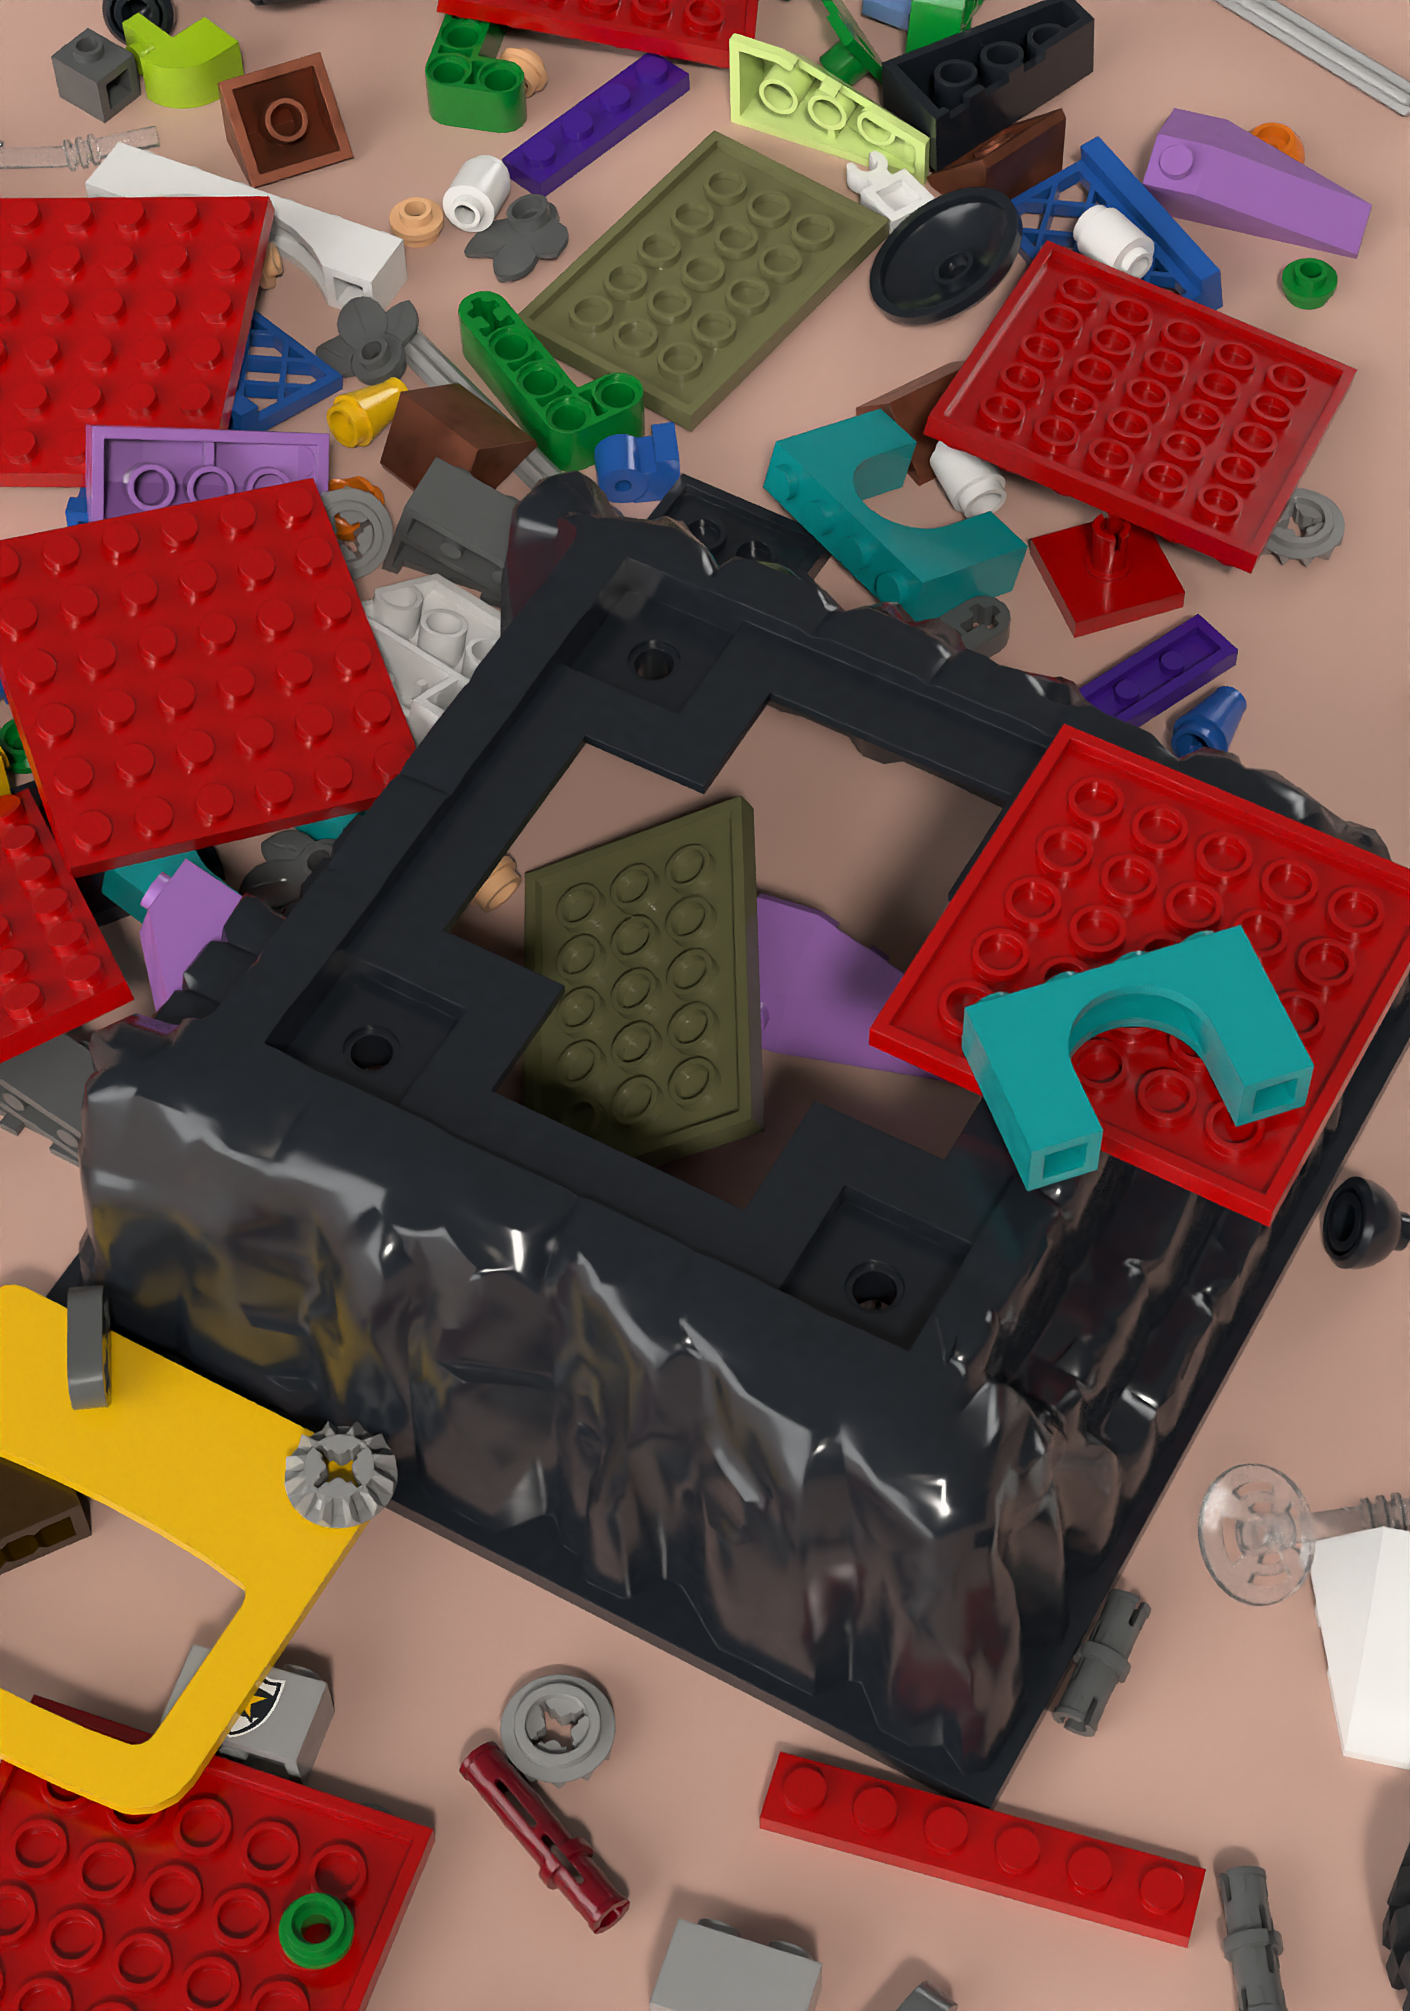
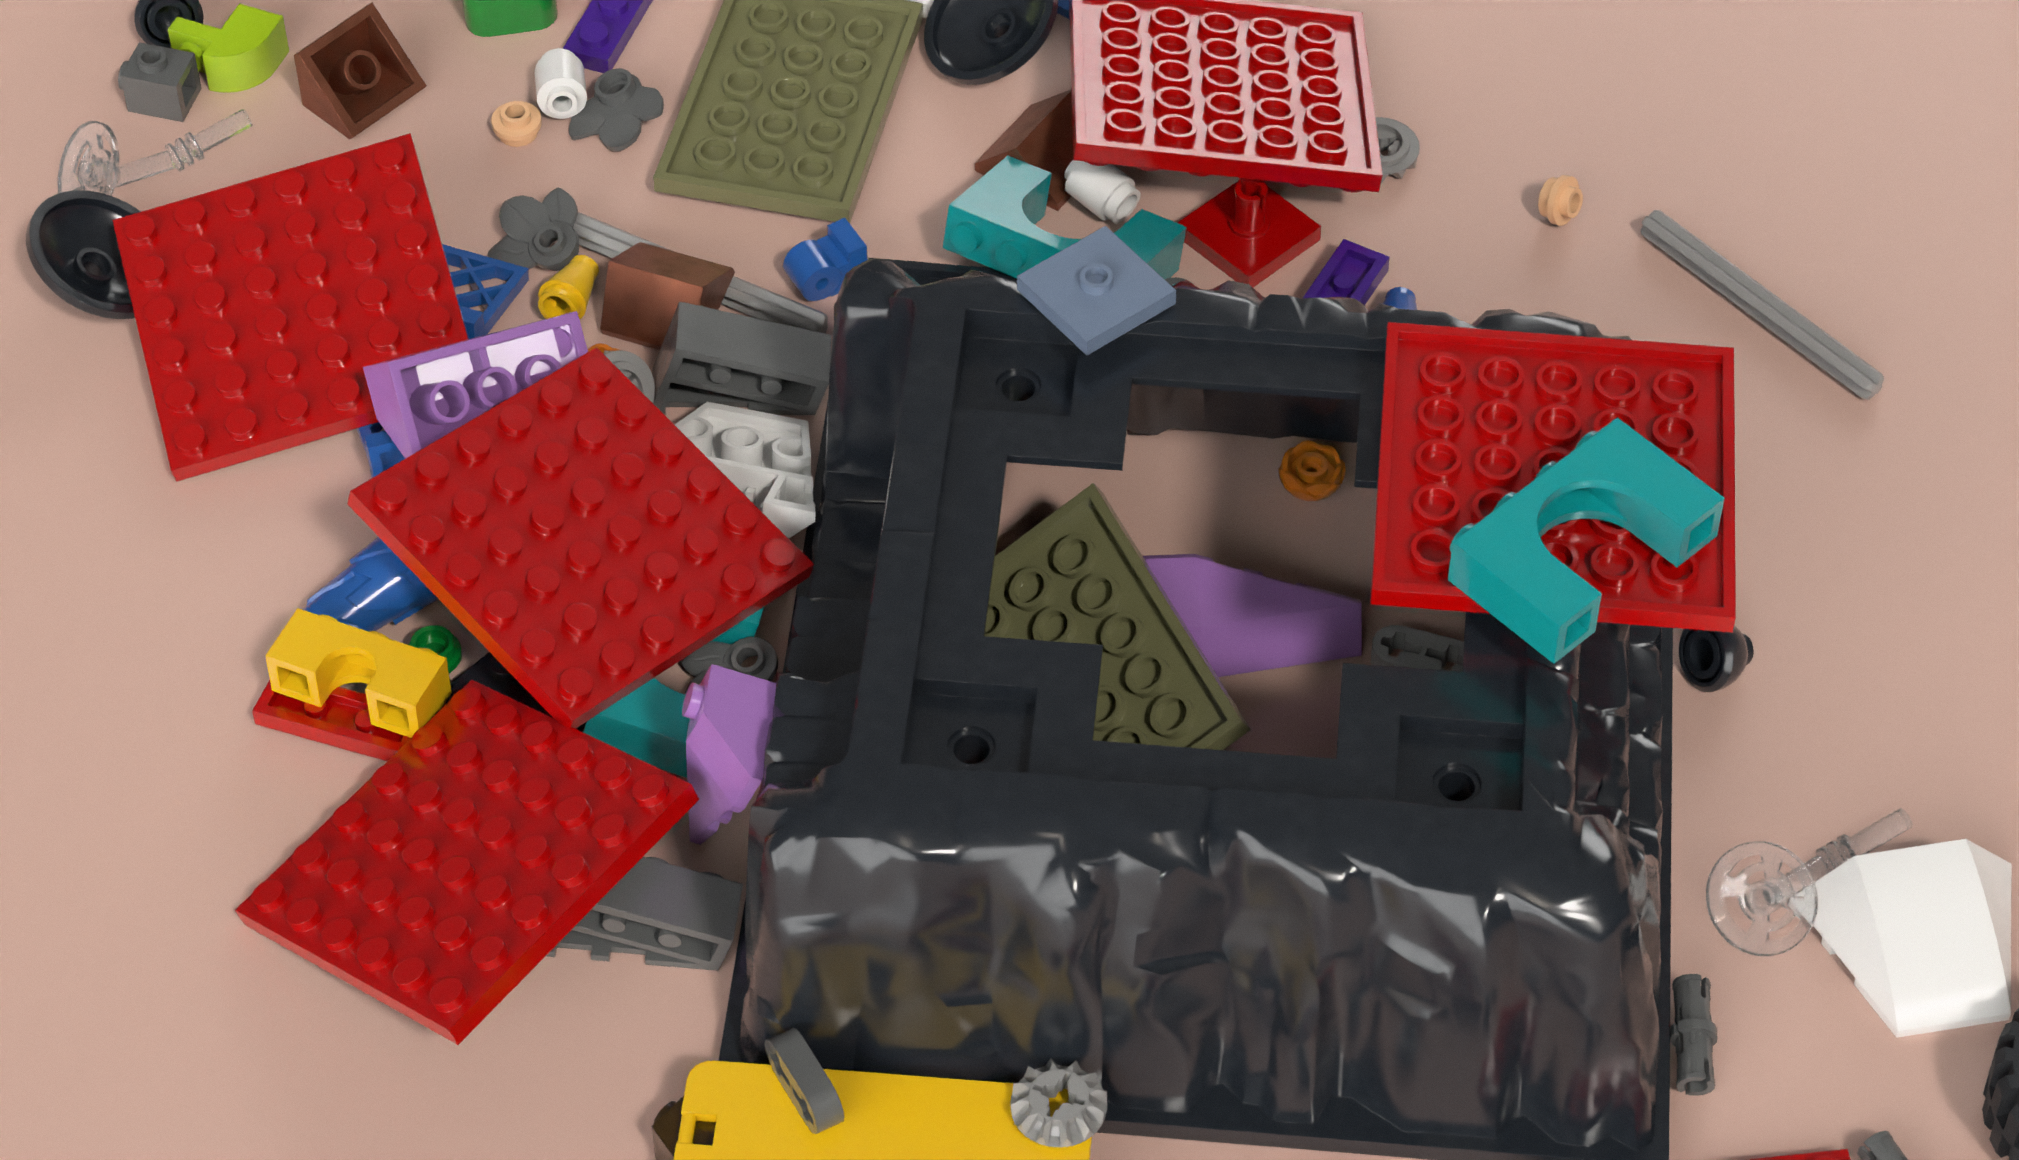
camera: 25 degrees left, 5 degrees down
(333, 252) = (465, 170): white arch -> none
(538, 392) = (705, 226): green beam -> none
(772, 581) = (1096, 290): none -> sand blue plate

